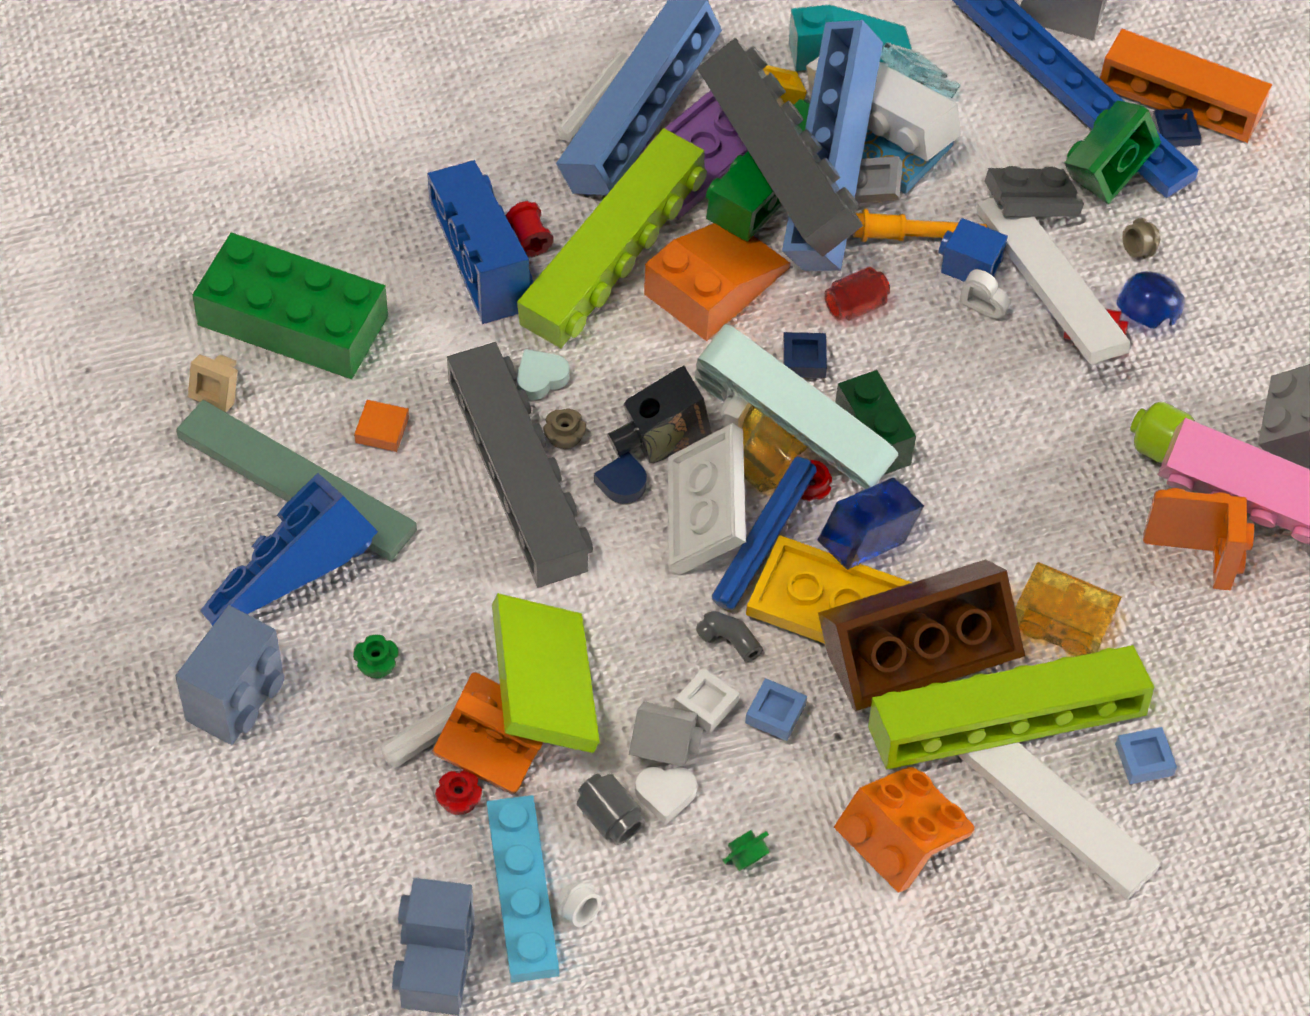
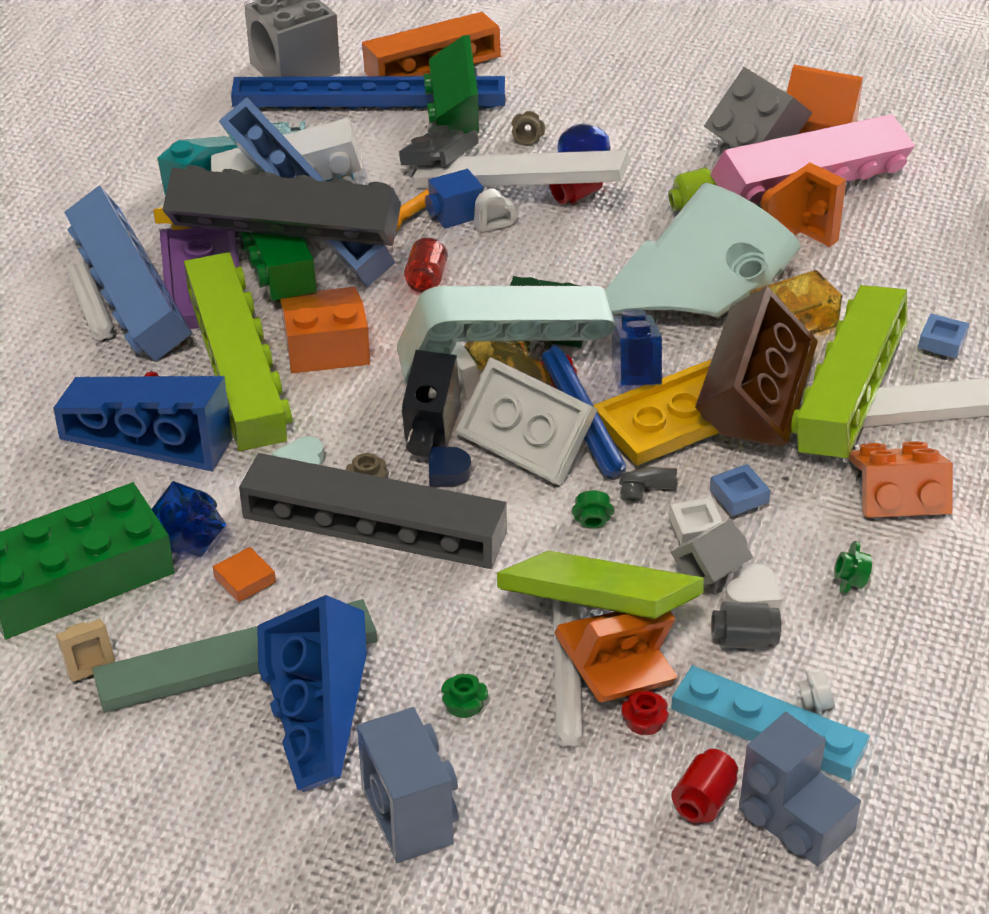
camera: 50 degrees left, 15 degrees down
(392, 347) = (188, 518): none -> clear blue brick
(396, 876) = (705, 786): none -> red brick
(656, 615) = (592, 509): none -> green plate
(1048, 502) = (705, 257): none -> light aqua panel

